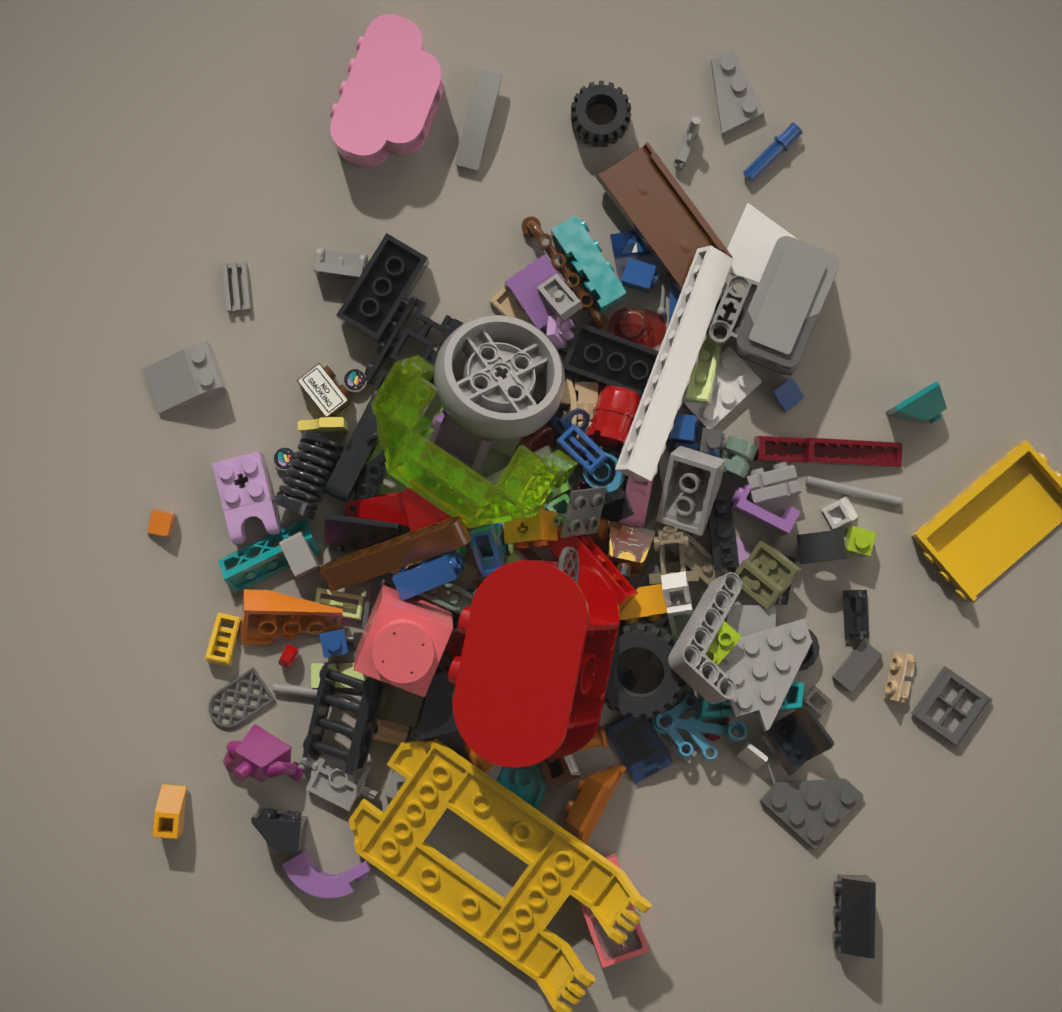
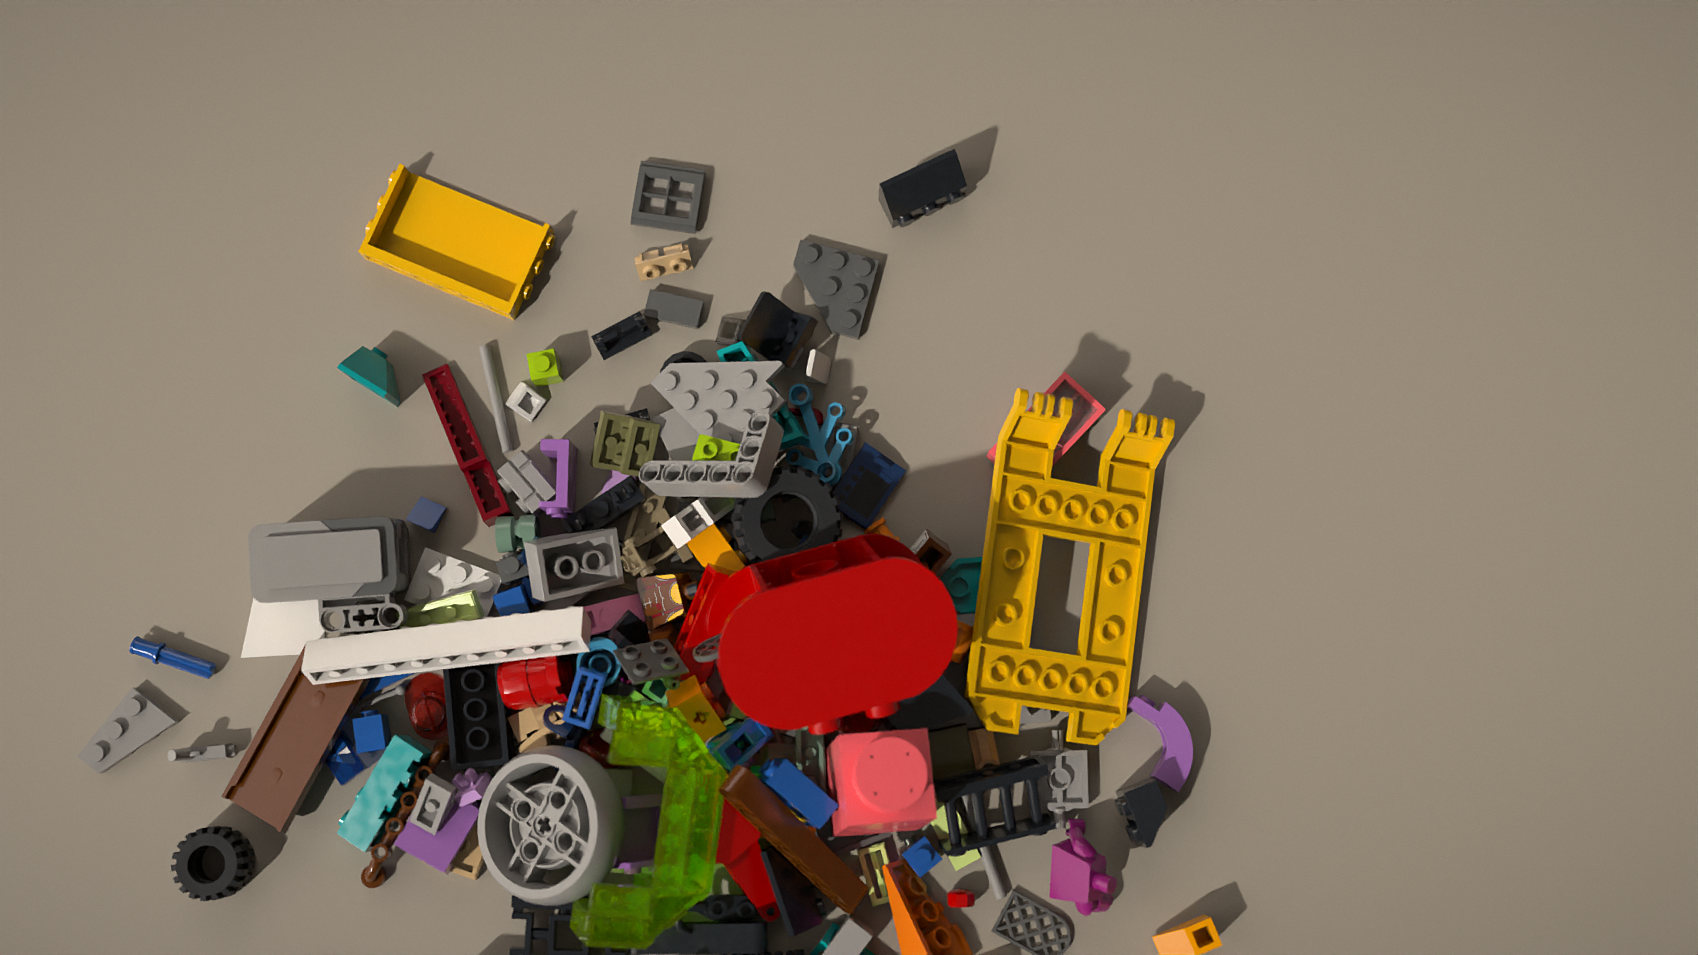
camera: 120 degrees left, 5 degrees down
(591, 800) = (945, 505): orange wedge -> none
(821, 546) = (568, 402): black piece -> none

